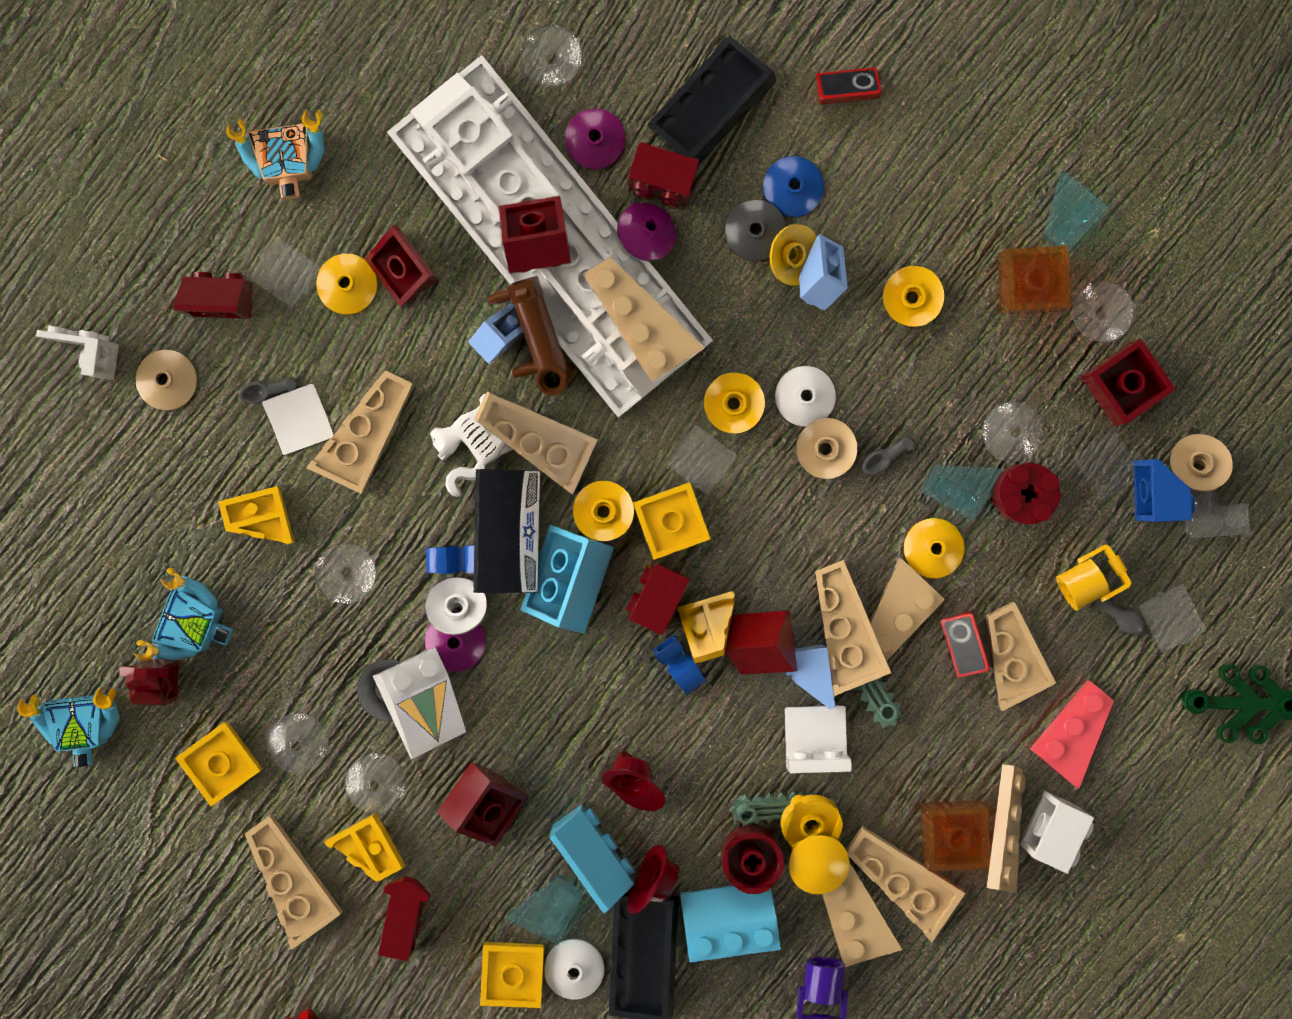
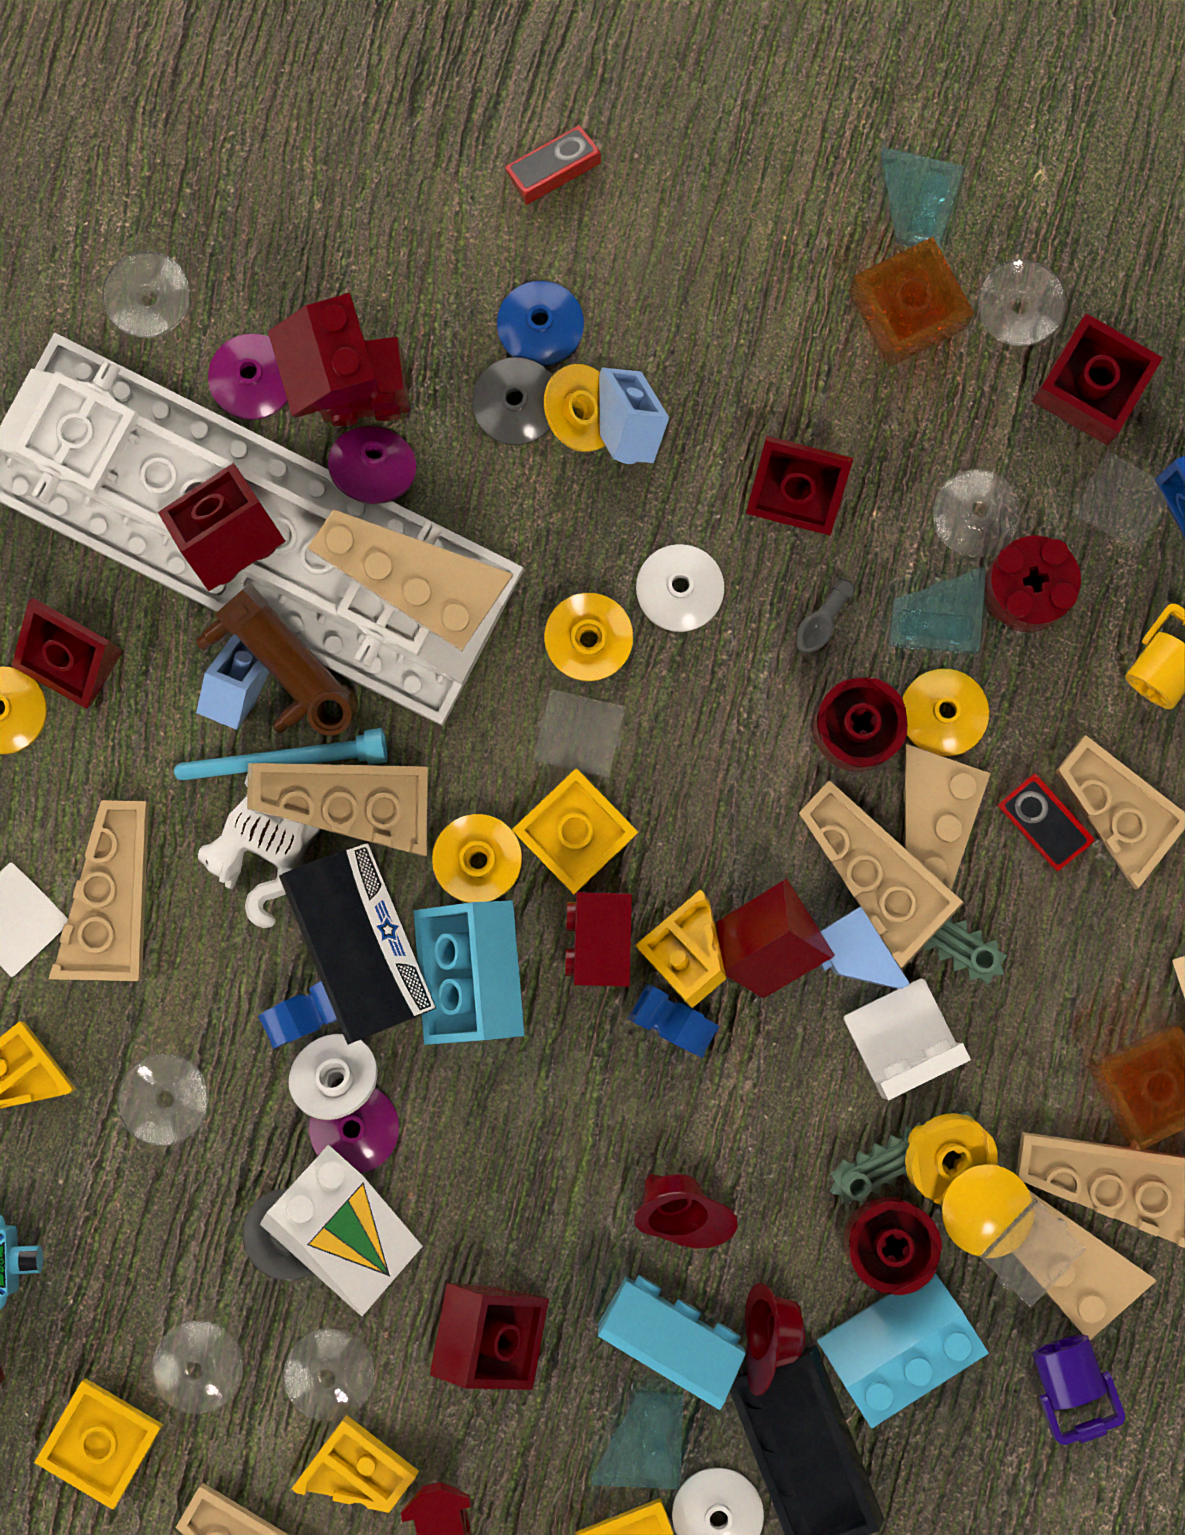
camera: 20 degrees left, 5 degrees down
(565, 410) = (366, 747): none -> medium azure piece
(646, 153) = (323, 356): none -> dark red slope
(712, 101) = (391, 251): black slope -> none
(834, 901) = (1032, 1253): none -> clear piece
(842, 445) = (747, 621): tan dish -> none
(894, 540) = (854, 699): none -> dark red brick
(909, 366) = (799, 485): none -> dark red slope
(926, 288) = (764, 372): yellow dish -> none

